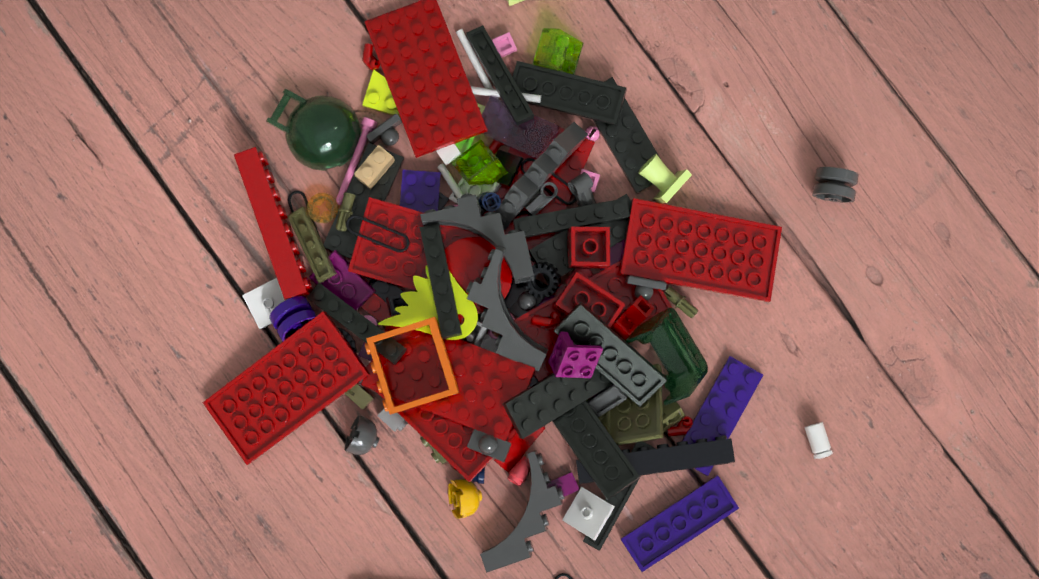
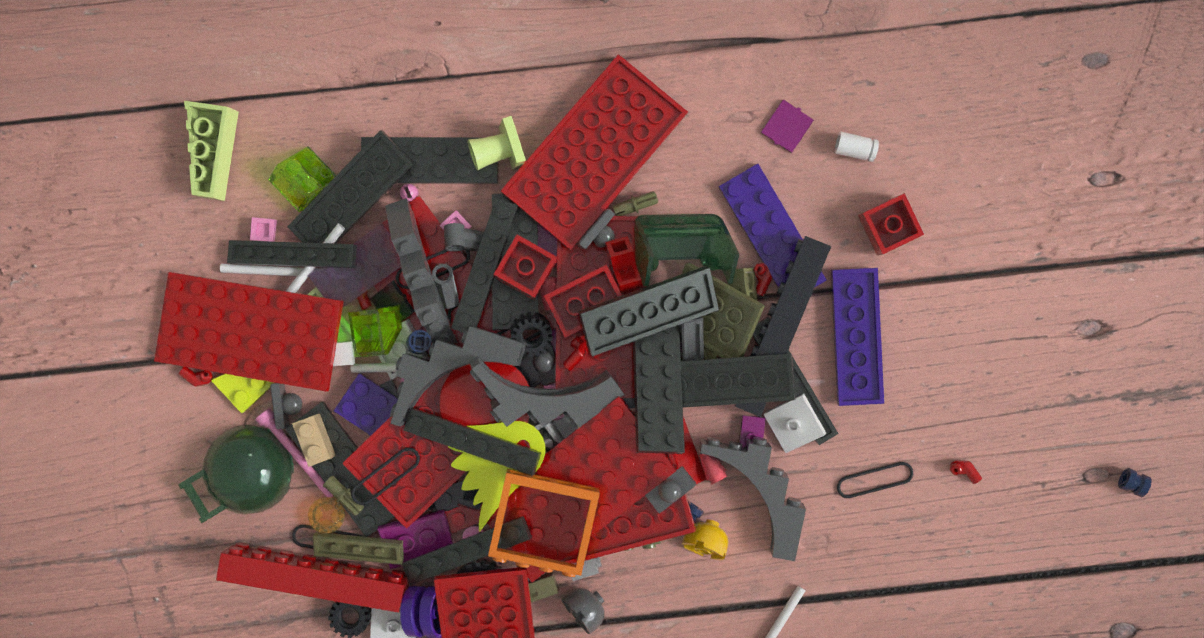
camera: 60 degrees left, 5 degrees up
(246, 267) = (346, 628): none -> black tyre
(573, 360) = (635, 352): magenta bracket -> none
(776, 498) = (891, 224): none -> red brick
(803, 381) = (787, 126): none -> magenta piece

